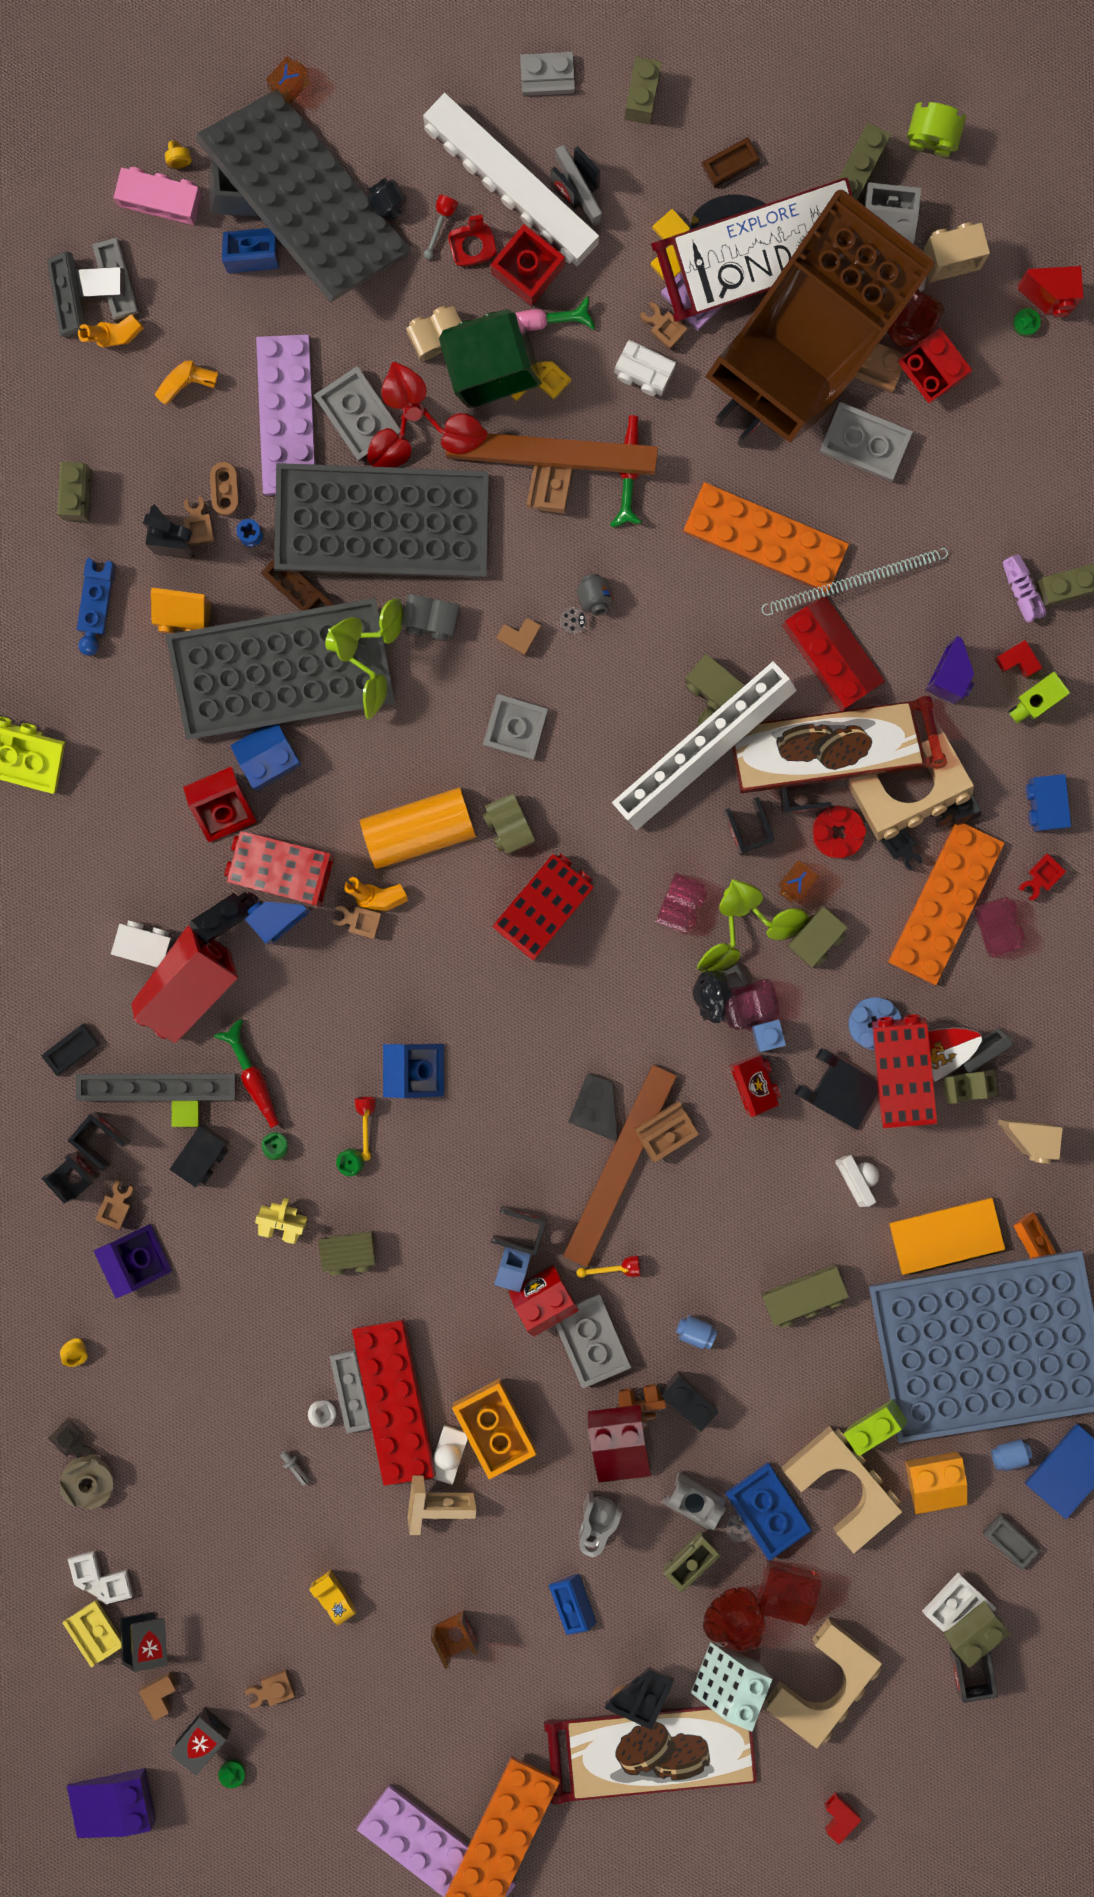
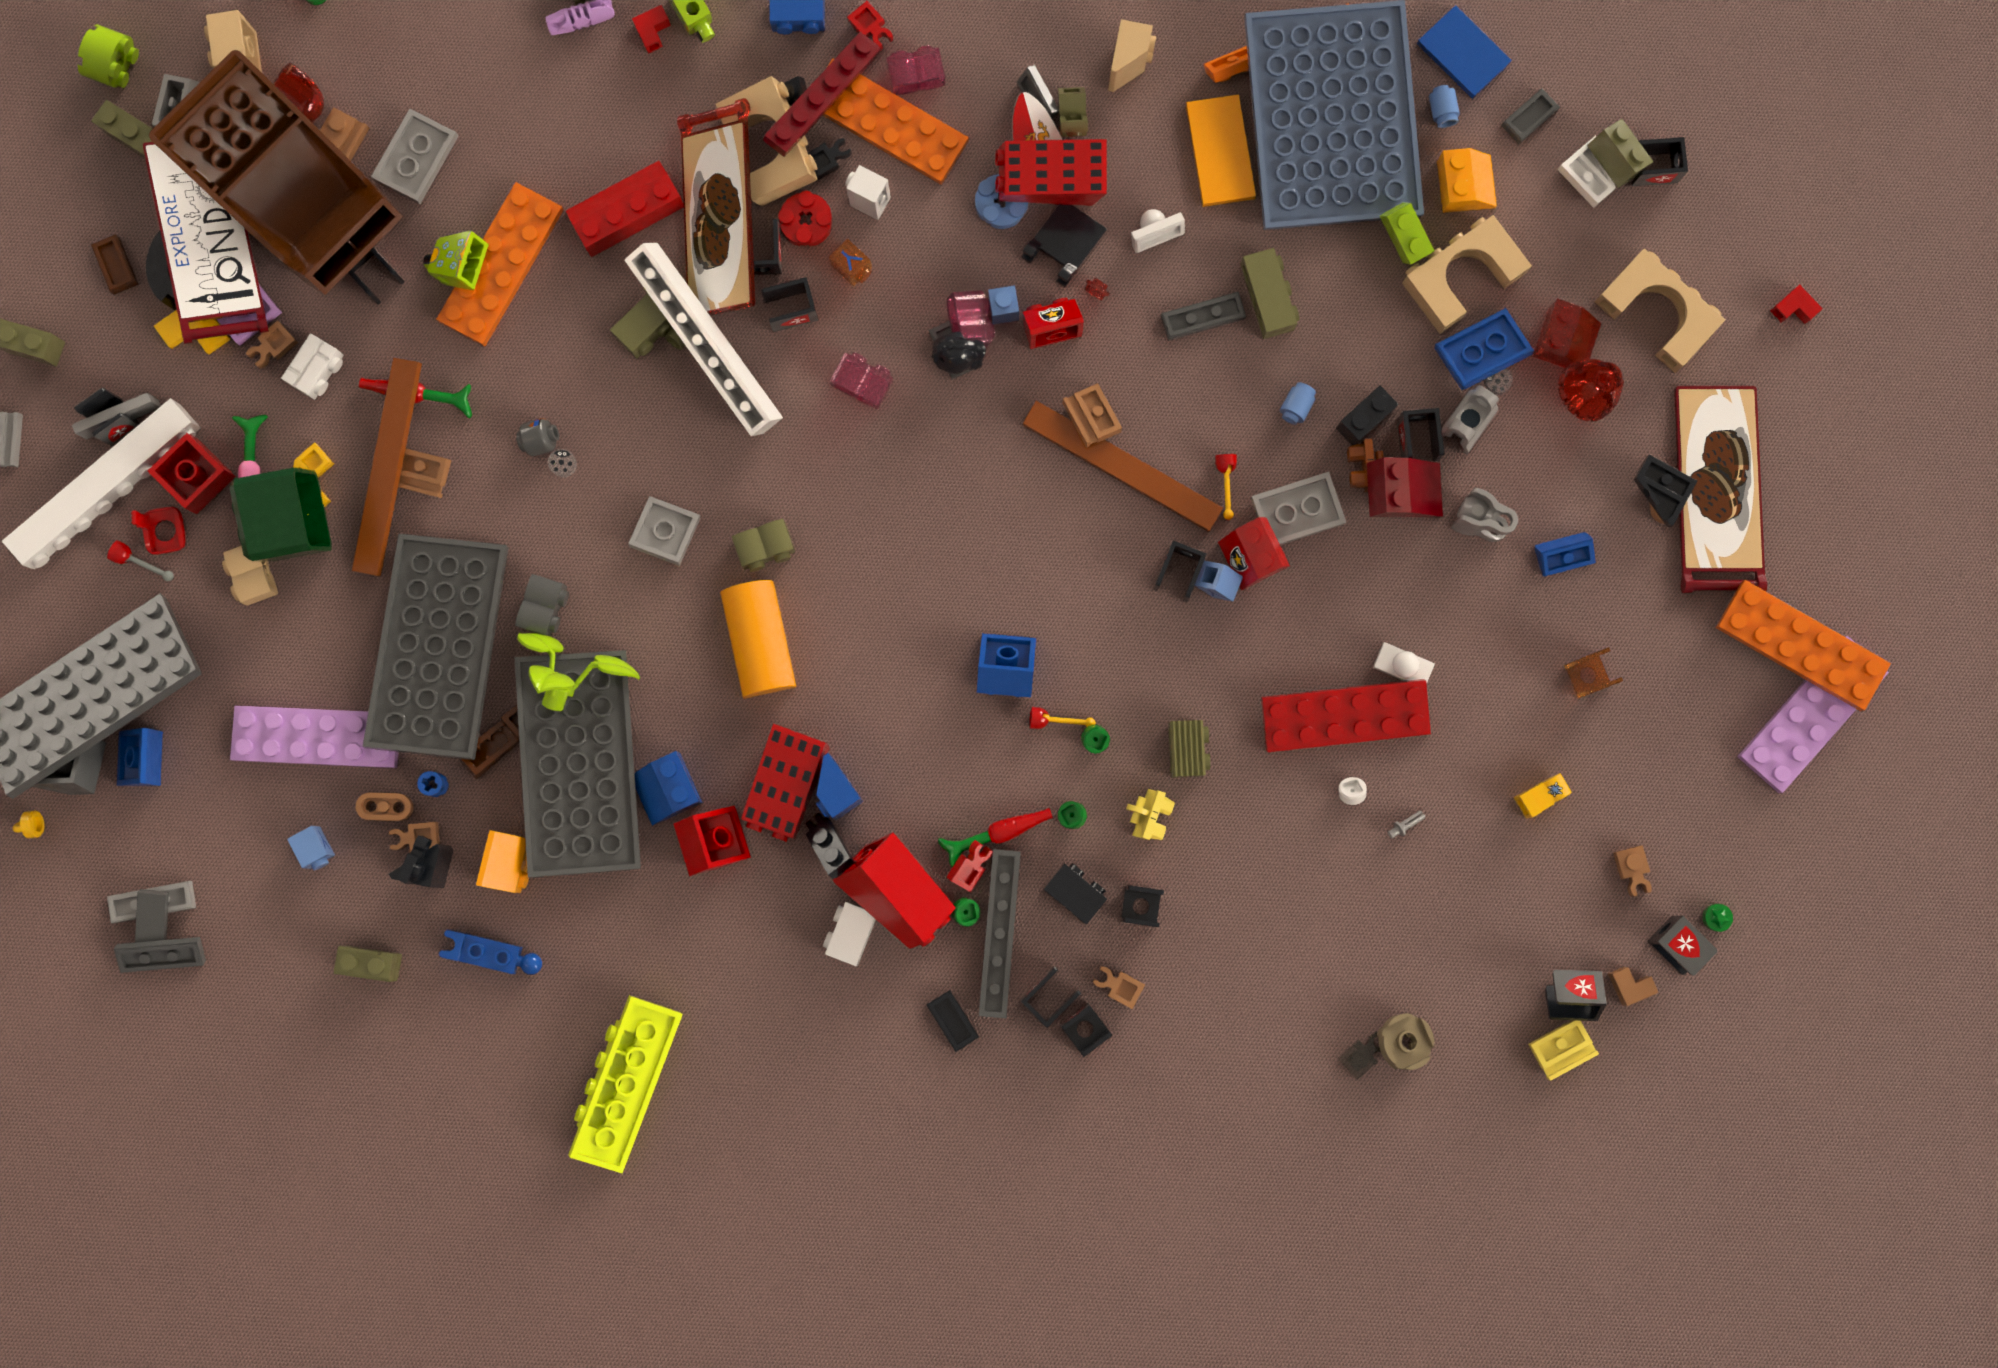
camera: 85 degrees left, 5 degrees down
(73, 1353) = (1269, 1044): yellow tile -> none
(88, 1577) = (1517, 1032): white tile -> none
(111, 334) = (208, 909): light orange arm -> none
(112, 1805) = (1744, 1046): dark purple slope -> none
(132, 1261) = (1179, 973): dark purple slope -> none
(157, 195) = (68, 849): bright pink brick -> none
(173, 1053) = (966, 912): none -> green tile
(178, 425) = (311, 848): none -> medium blue brick
(179, 1225) = (1152, 896): none -> black piece
(181, 376) = (260, 838): light orange arm -> none
(185, 1113) = (1029, 905): lime tile -> none
(213, 1052) = (968, 869): none -> red plate
(350, 1391) = (1331, 759): light grey tile -> none
(355, 411) = (323, 662): light grey plate -> none
(361, 922) = (848, 704): medium nougat plate -> none
(375, 898) = (825, 688): light orange arm -> none
(387, 198) = (103, 611): black head -> none
(406, 391) = (302, 605): red plant -> none
(436, 1505) = (1454, 685): tan bracket -> none
(494, 1428) = (1380, 613): light orange brick -> none
(521, 640) = (576, 518): medium nougat piece -> none
(543, 906) = (851, 516): red slope -> none
(595, 1107) = (1061, 485): black wing -> none
(679, 1469) = (1435, 430): none -> black piece
(691, 1561) = (1529, 427): olive brick -> none
(732, 1685) = (1658, 393): light aqua slope -> none
(738, 901) = (864, 318): lime plant -> none
(762, 496) = (457, 259): none -> lime torso
(777, 1232) = (1203, 316): none -> dark grey tile
(793, 1125) = (1097, 288): none -> clear red plate
(817, 937) = (909, 248): olive brick -> none
(855, 582) = (549, 144): light aqua piece -> none
(867, 891) = (868, 192): none -> white brick
(935, 366) = (345, 78): red slope -> none
(953, 673) = (656, 89): dark purple slope -> none
(961, 837) = (821, 94): none -> dark red plate

